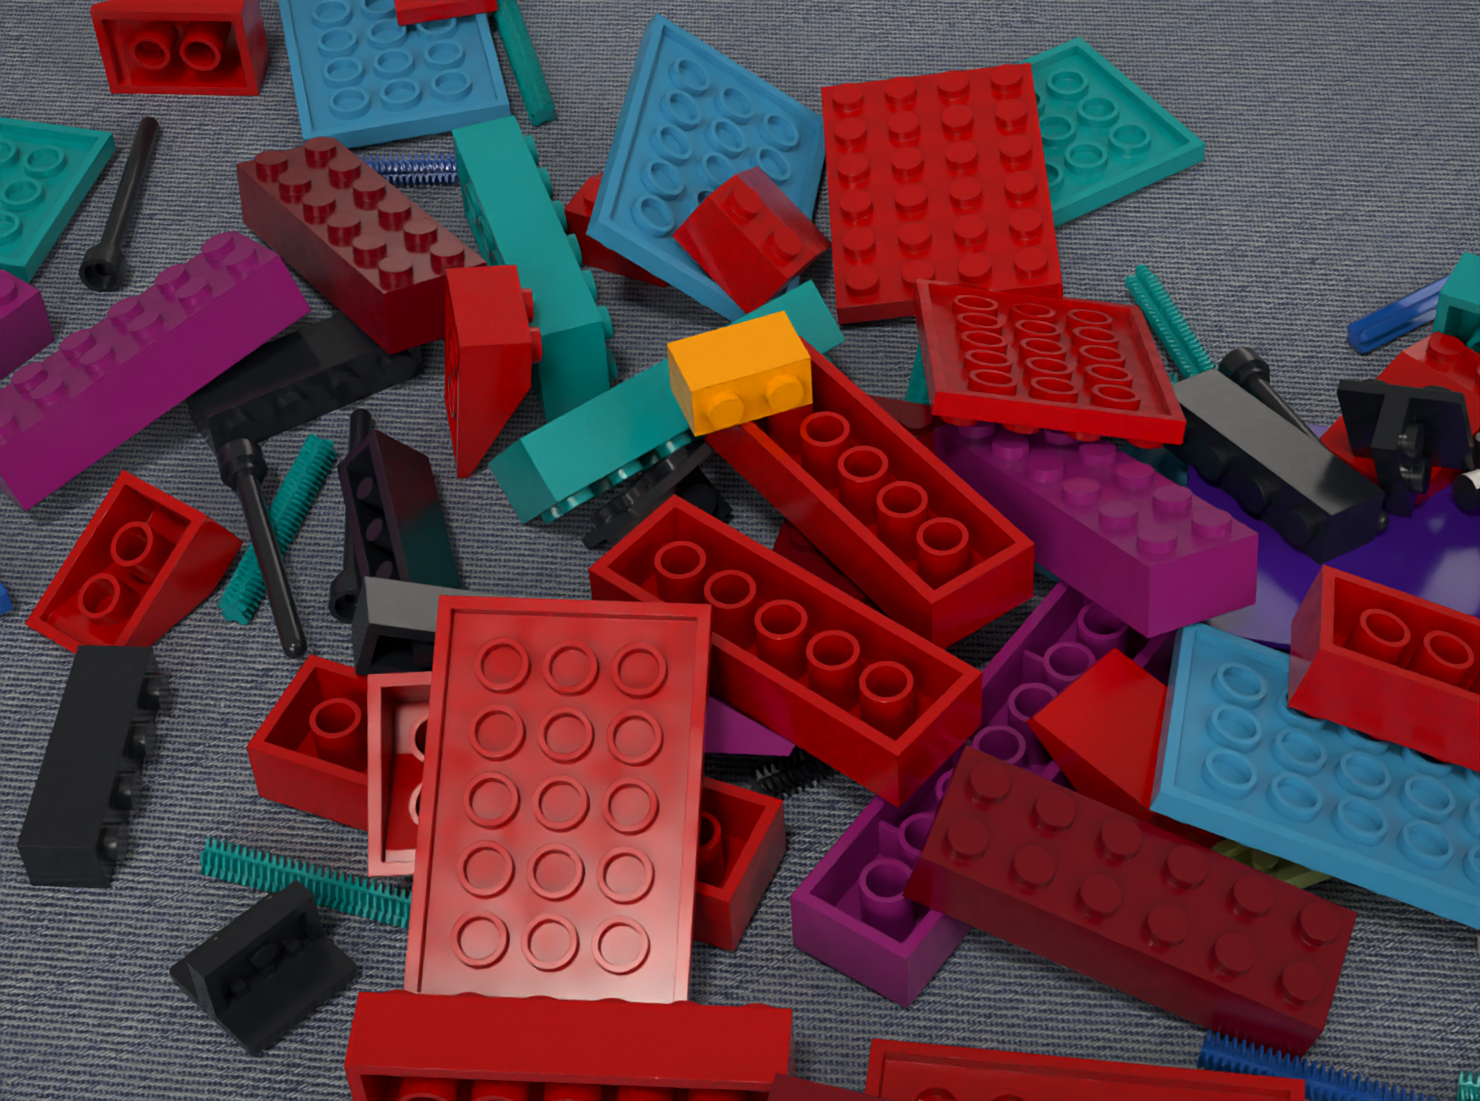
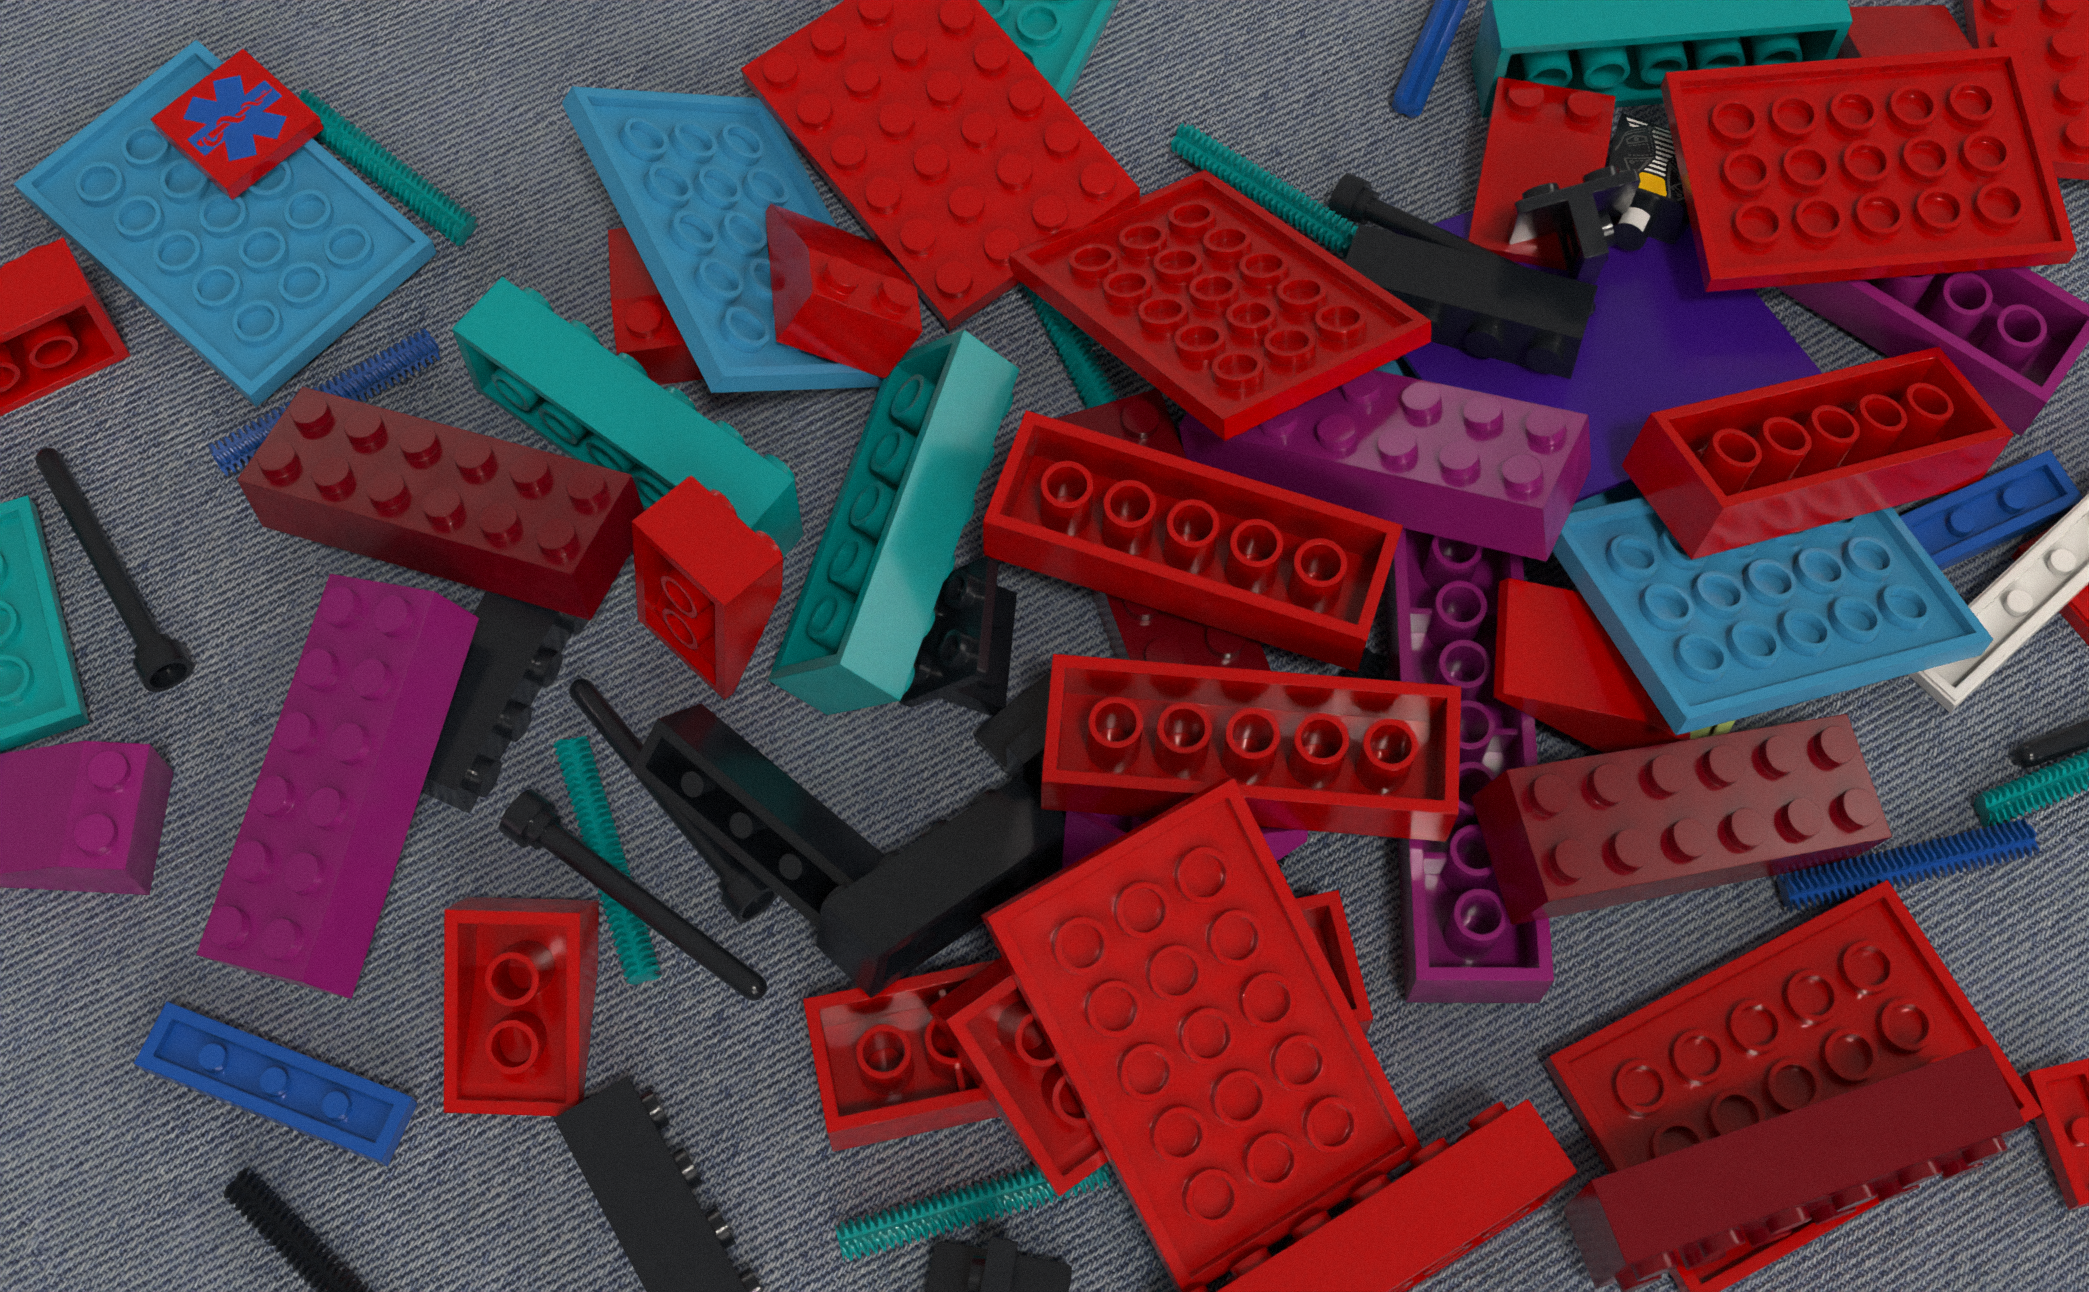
camera: 40 degrees left, 20 degrees up
(740, 373) = (1028, 495): light orange brick -> none

